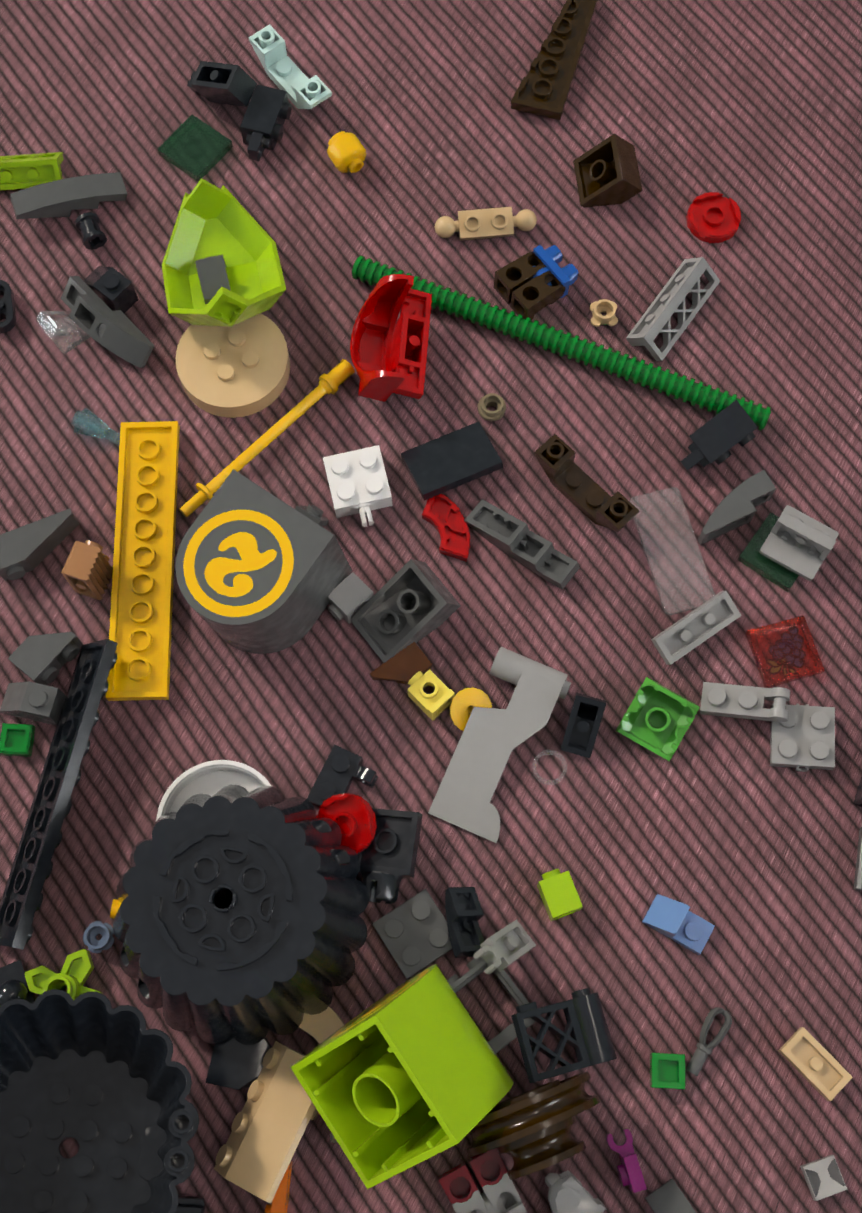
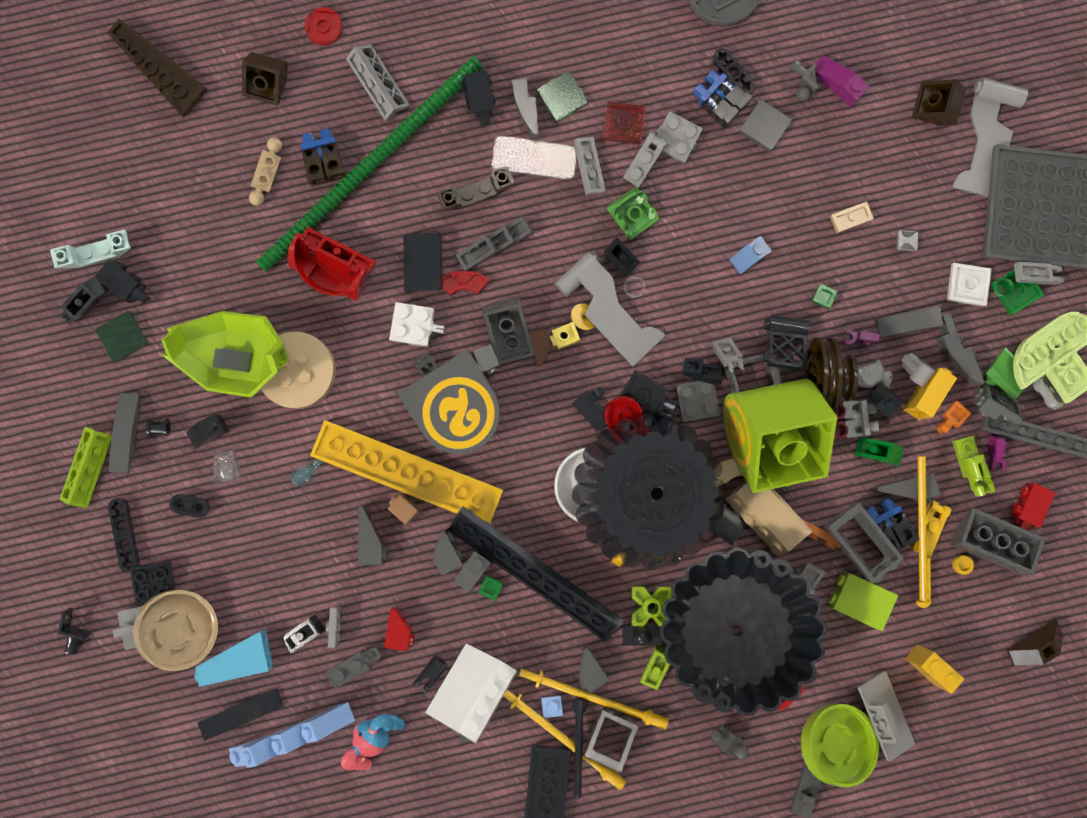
camera: 70 degrees left, 15 degrees up
(92, 931) = (632, 577): sand blue plate -> none
(106, 326) = (235, 443): dark grey slope -> none
(327, 385) = (337, 317): yellow bar -> none
(346, 152) = (172, 238): yellow head -> none
(491, 400) = (396, 217): dark tan plate -> none
(559, 894) = (709, 312): lime brick -> none
(603, 306) = (359, 120): tan plate -> none
(703, 1049) = (821, 272): dark grey piece -> none
(799, 543) = (565, 81): light grey bracket -> none

